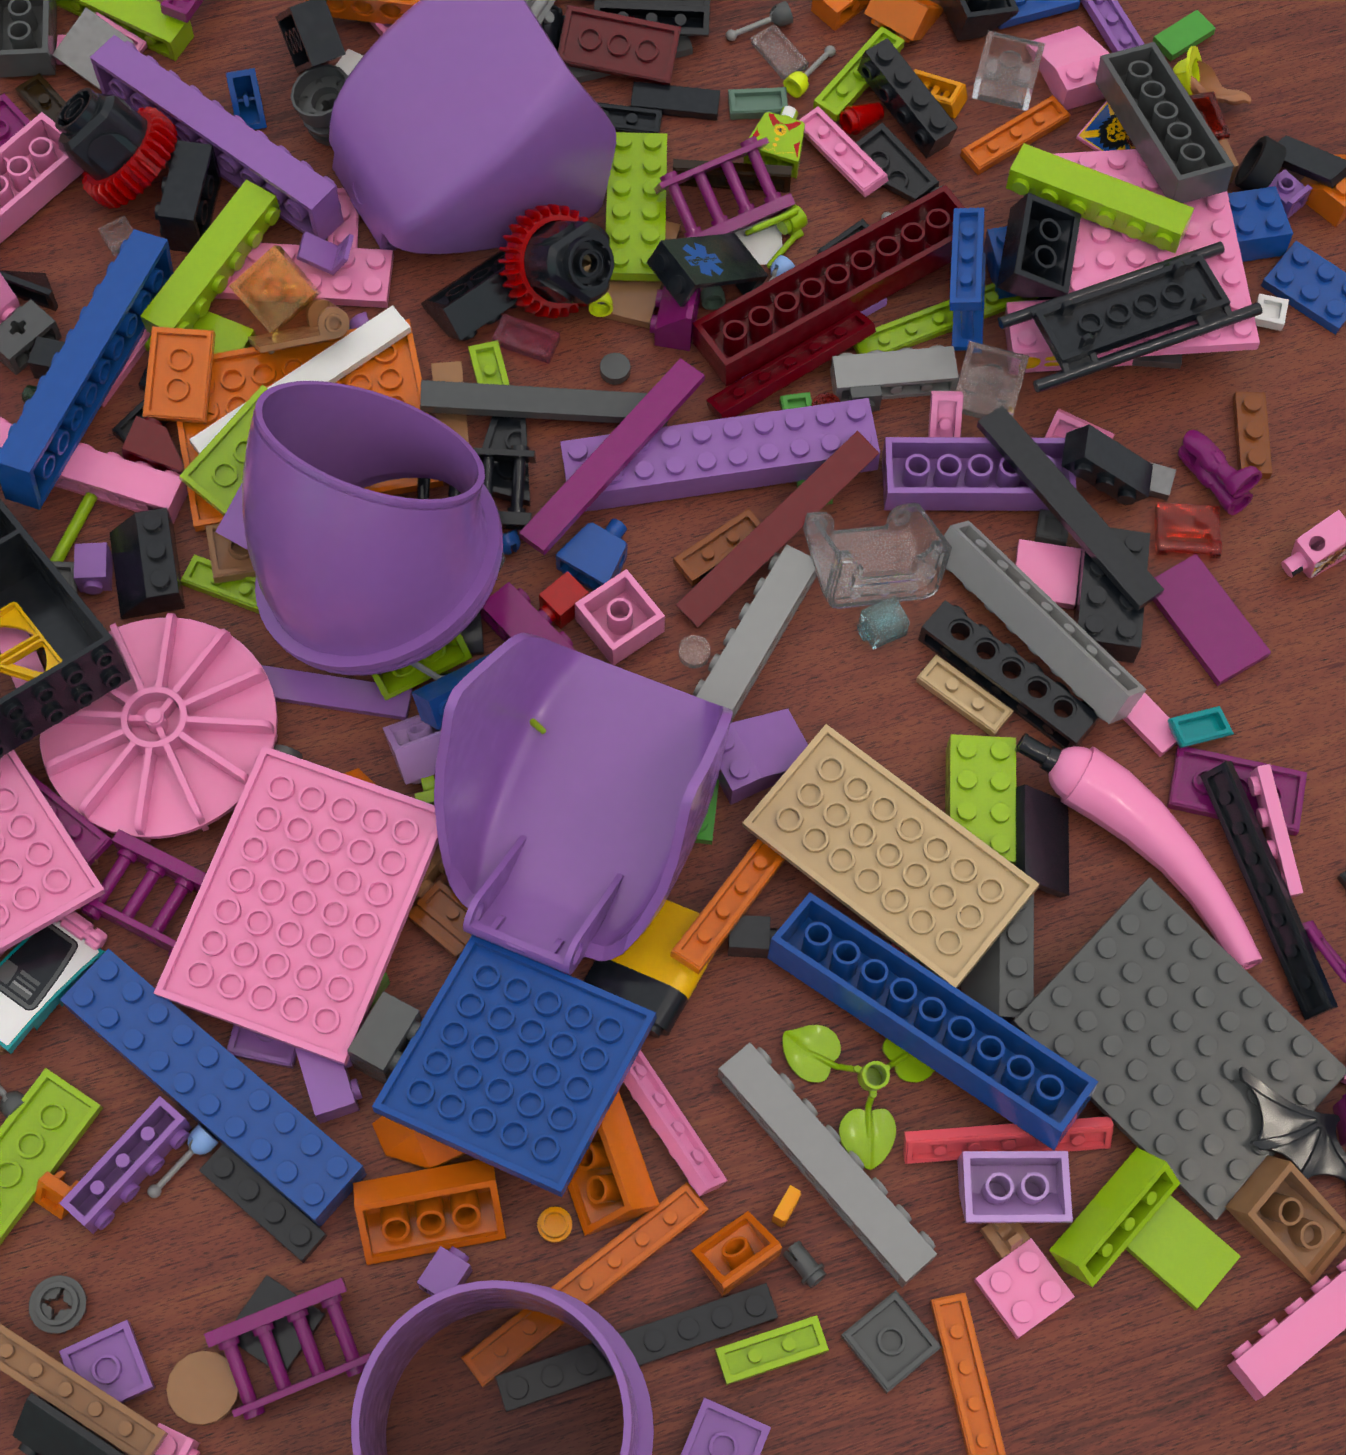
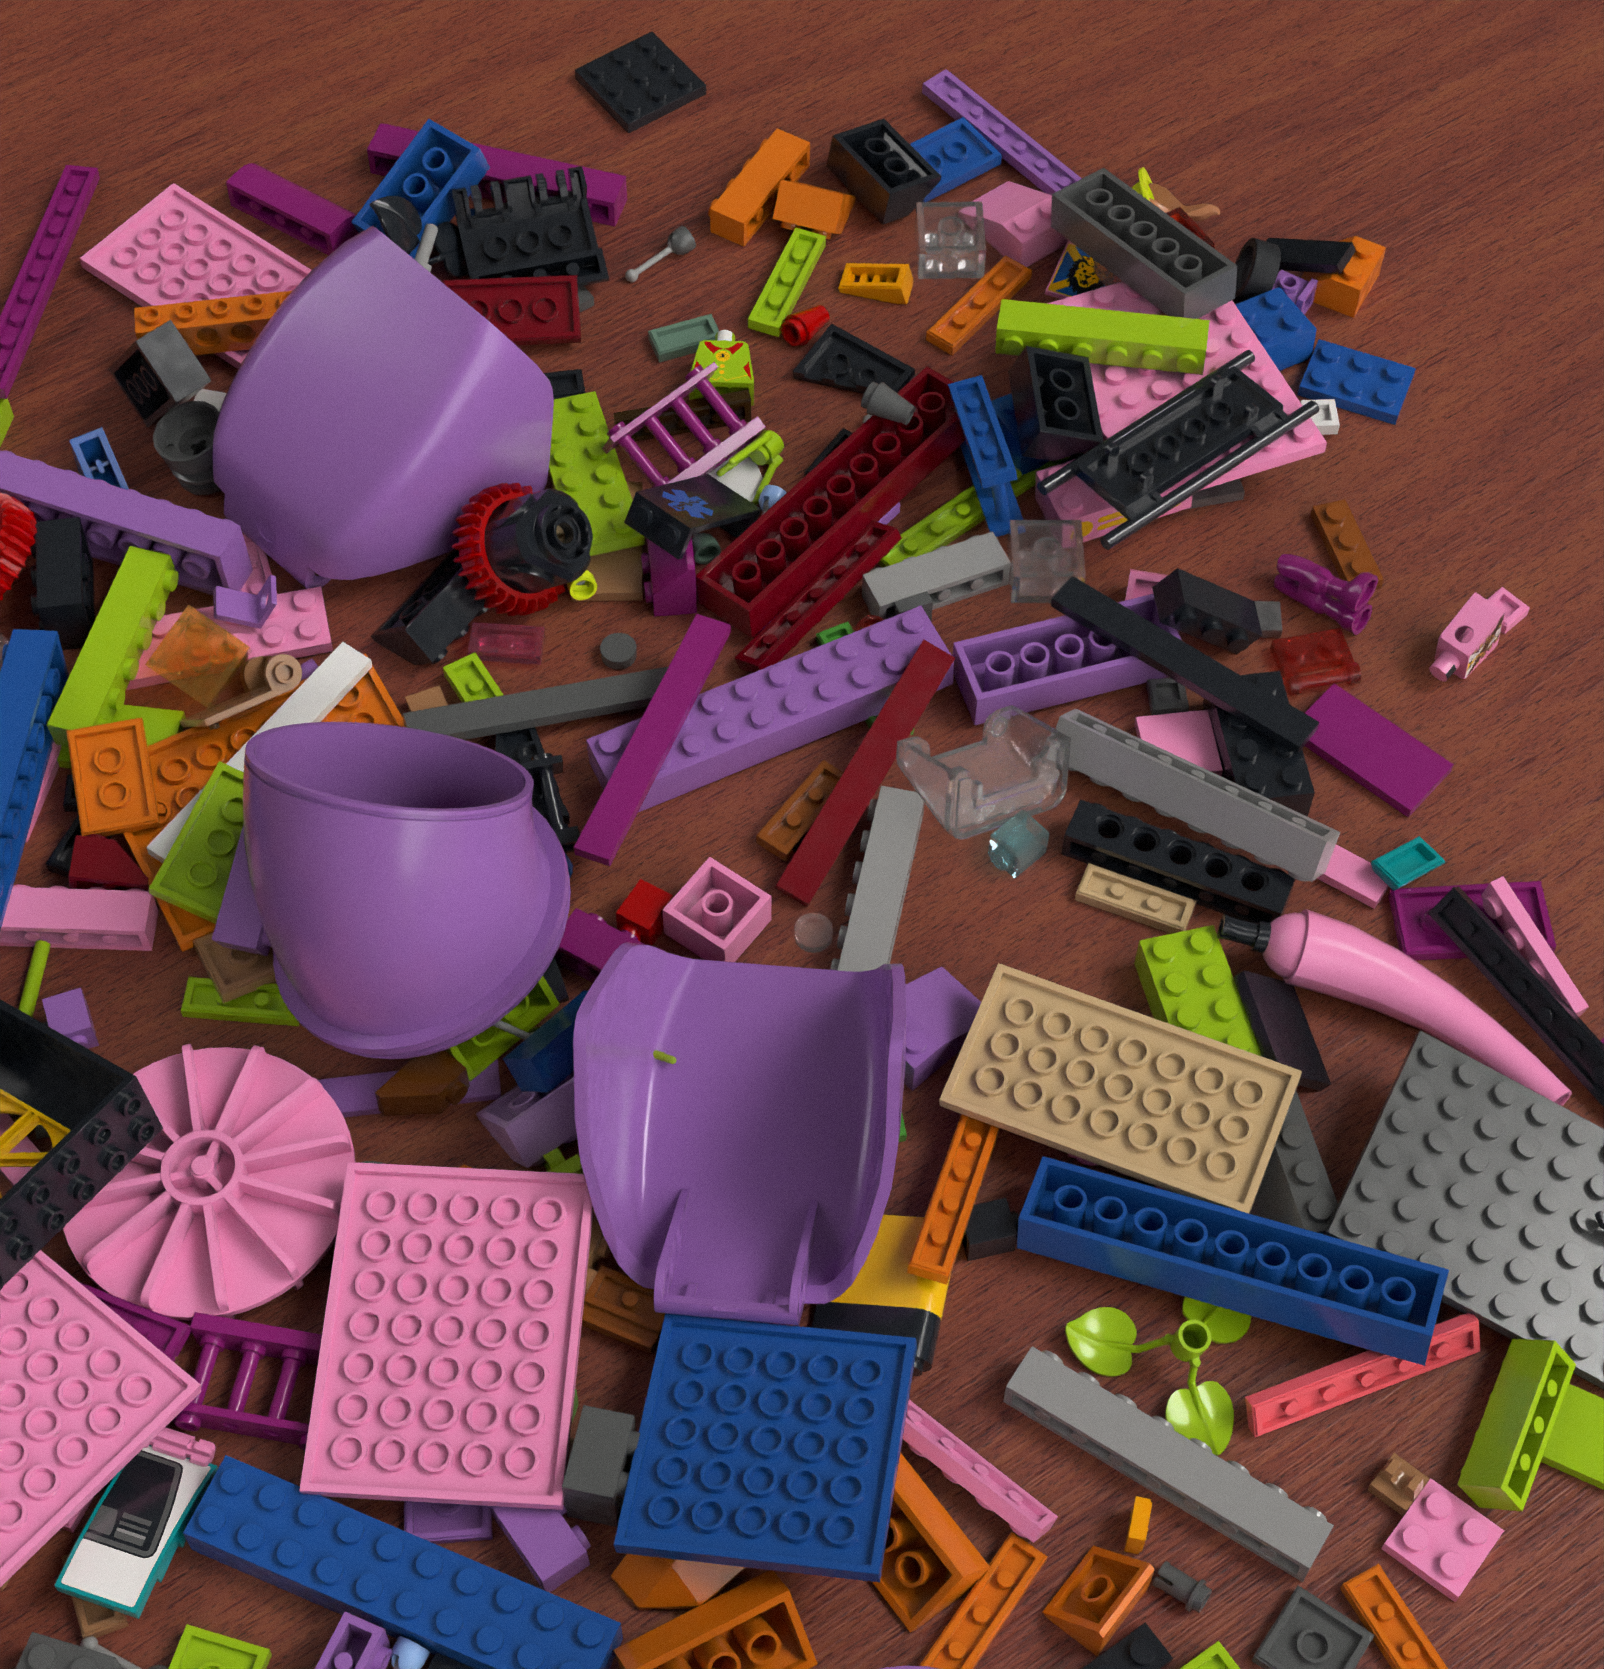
camera: 15 degrees left, 10 degrees down
(146, 564) = (134, 1003): black slope -> none
(346, 696) = (424, 1086): none -> reddish brown slope
(554, 1224) = (871, 1629): light orange plate -> none
(594, 554) = (663, 853): blue torso -> none
(677, 100) = (594, 355): black tile -> none
(779, 51) = (691, 281): clear tile -> none
(797, 82) = (722, 305): neon yellow hinge -> none
(843, 152) = (800, 364): bright pink tile -> none
(898, 211) = (887, 404): none -> dark grey cone
(907, 98) = (851, 292): black brick -> none
(945, 414) = (1010, 602): bright pink plate -> none
(1015, 1186) = (1392, 1421): lavender slope -> none
(1184, 34) = (1127, 159): bright green tile -> none

